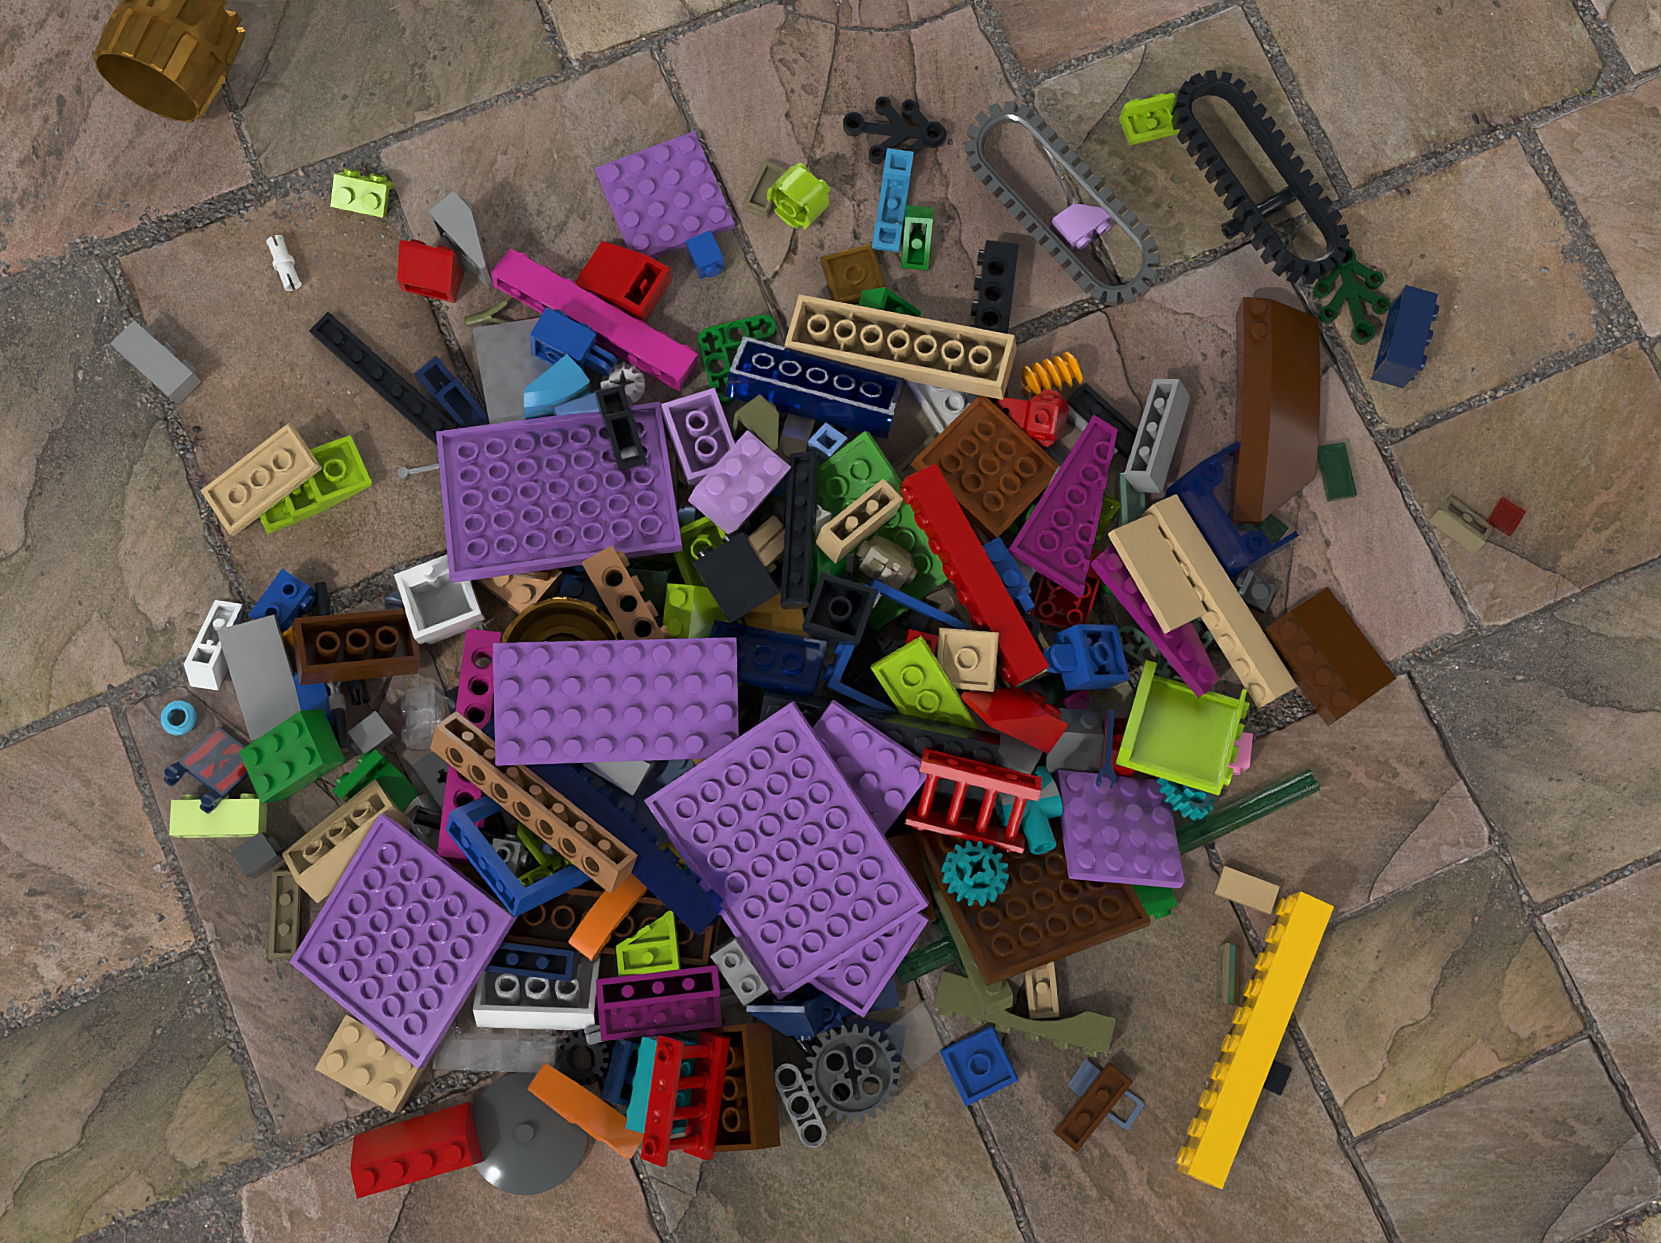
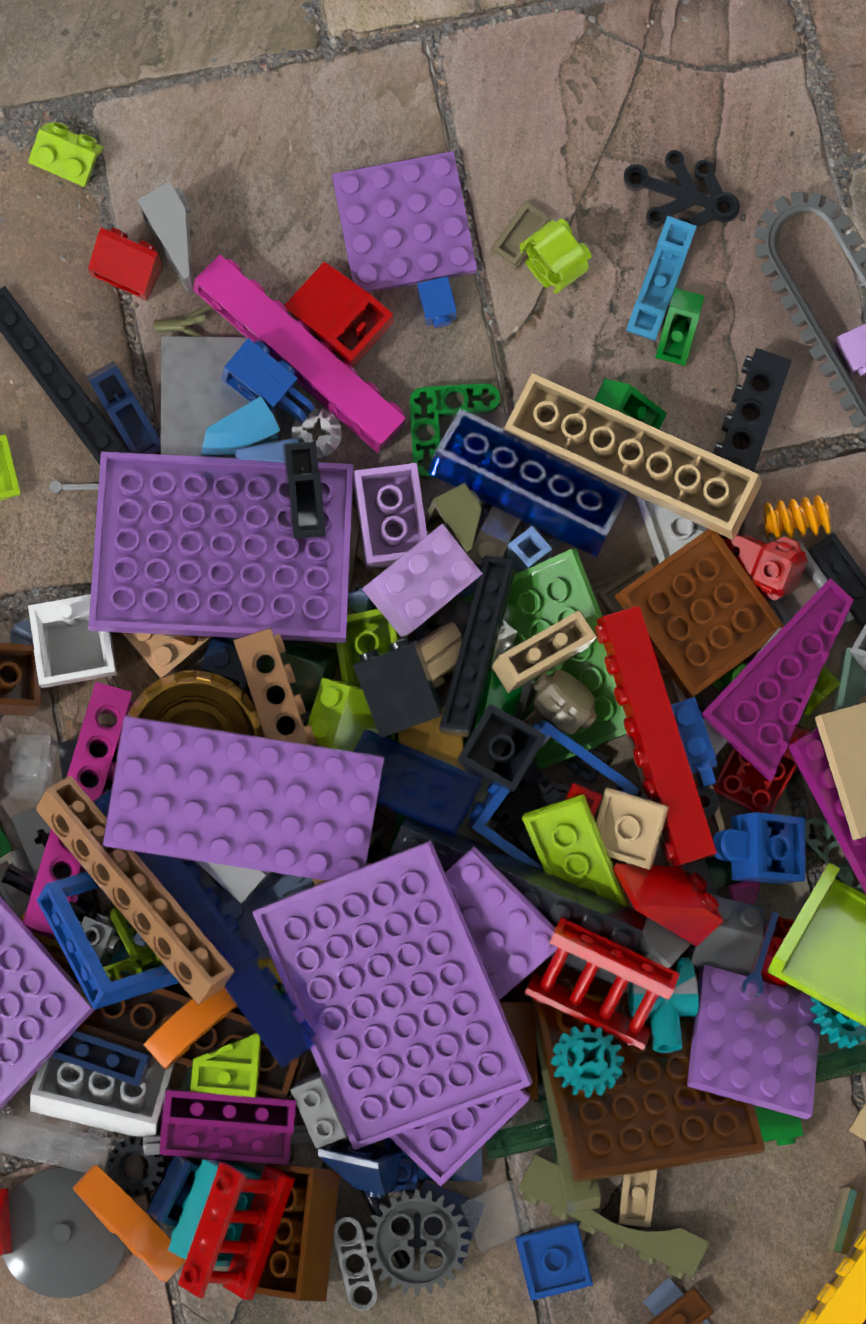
camera: 15 degrees right, 5 degrees up
(852, 272) = (598, 354): pearl gold tile -> none

